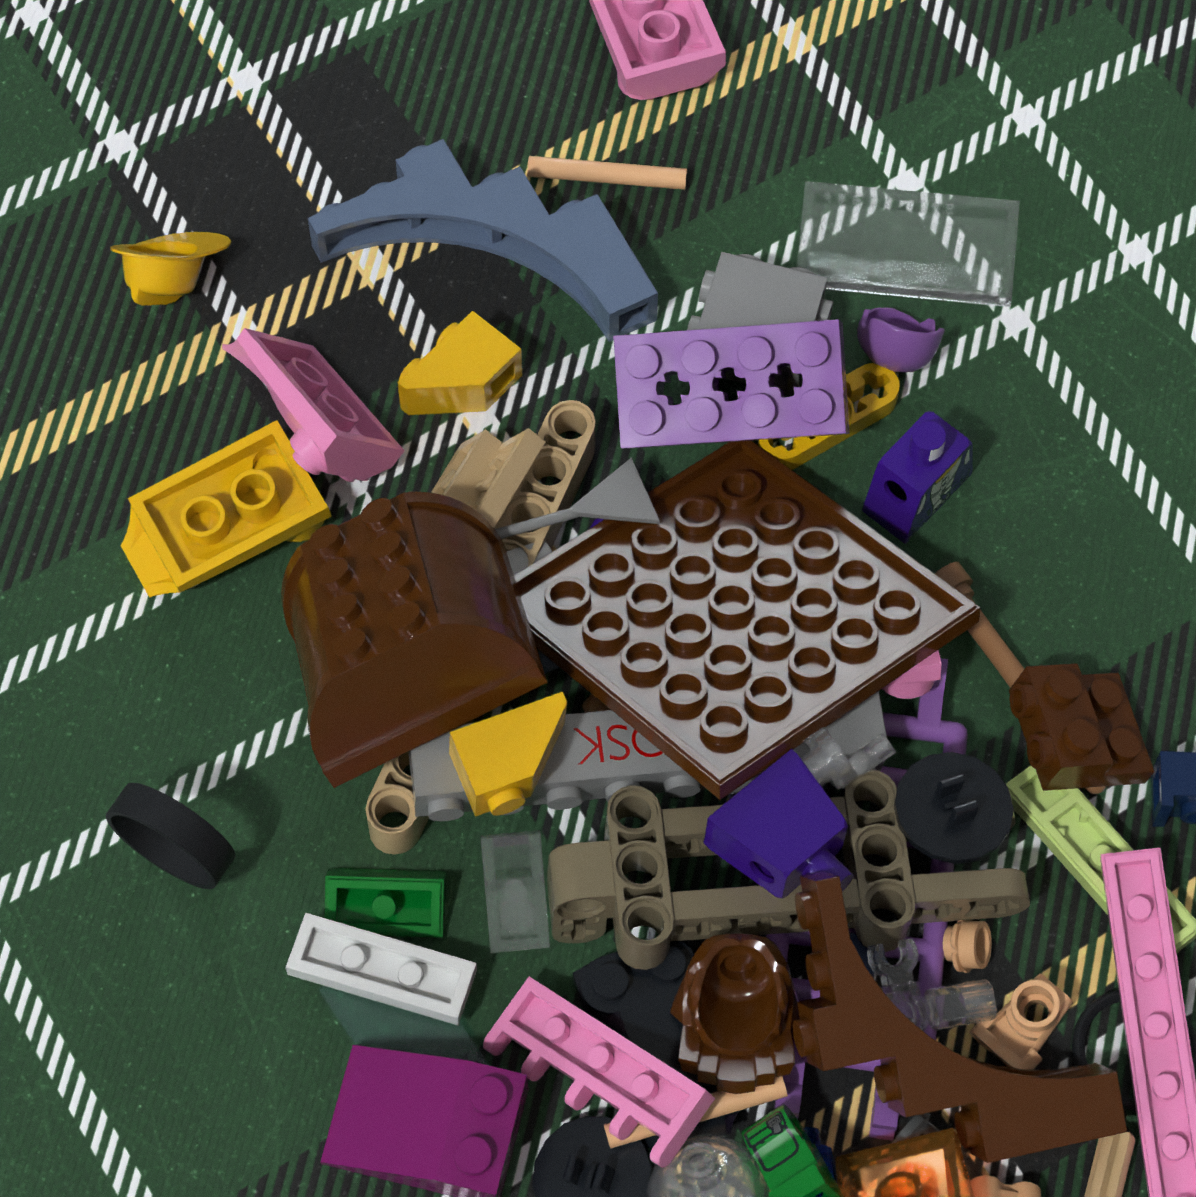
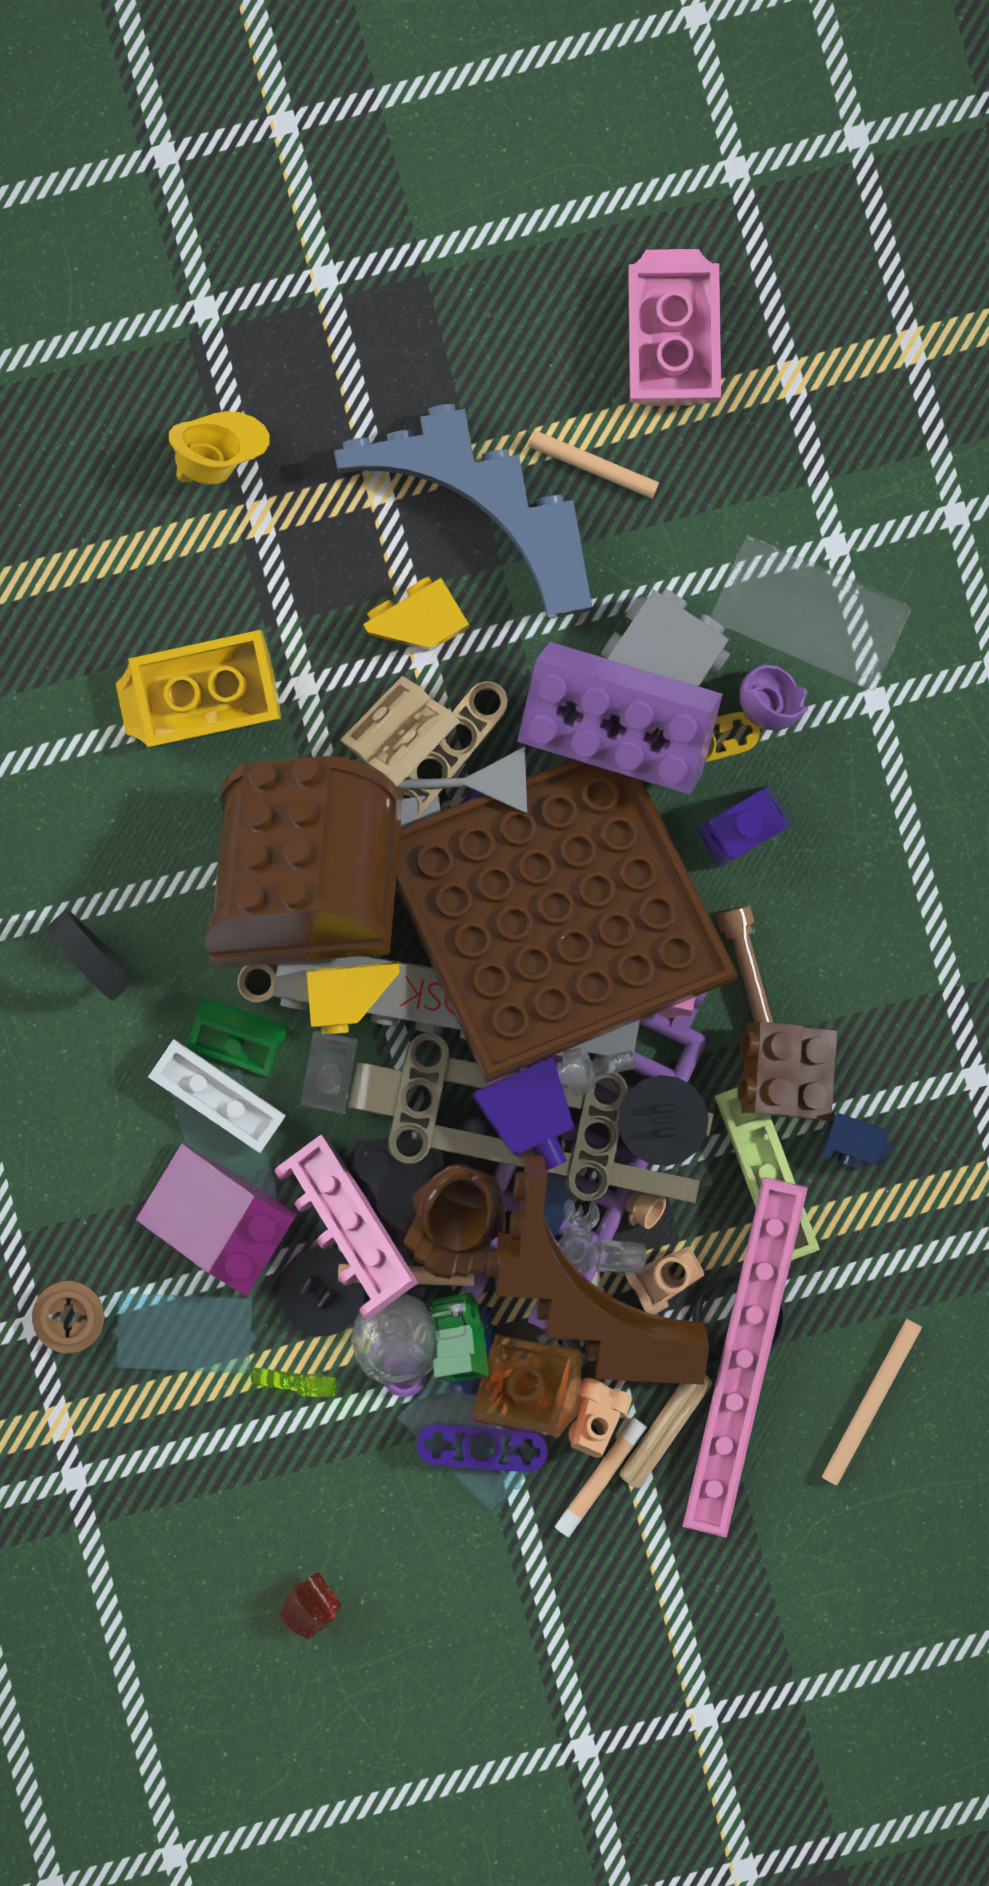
camera: 15 degrees right, 25 degrees up
(328, 419) = (296, 620): bright pink slope -> none

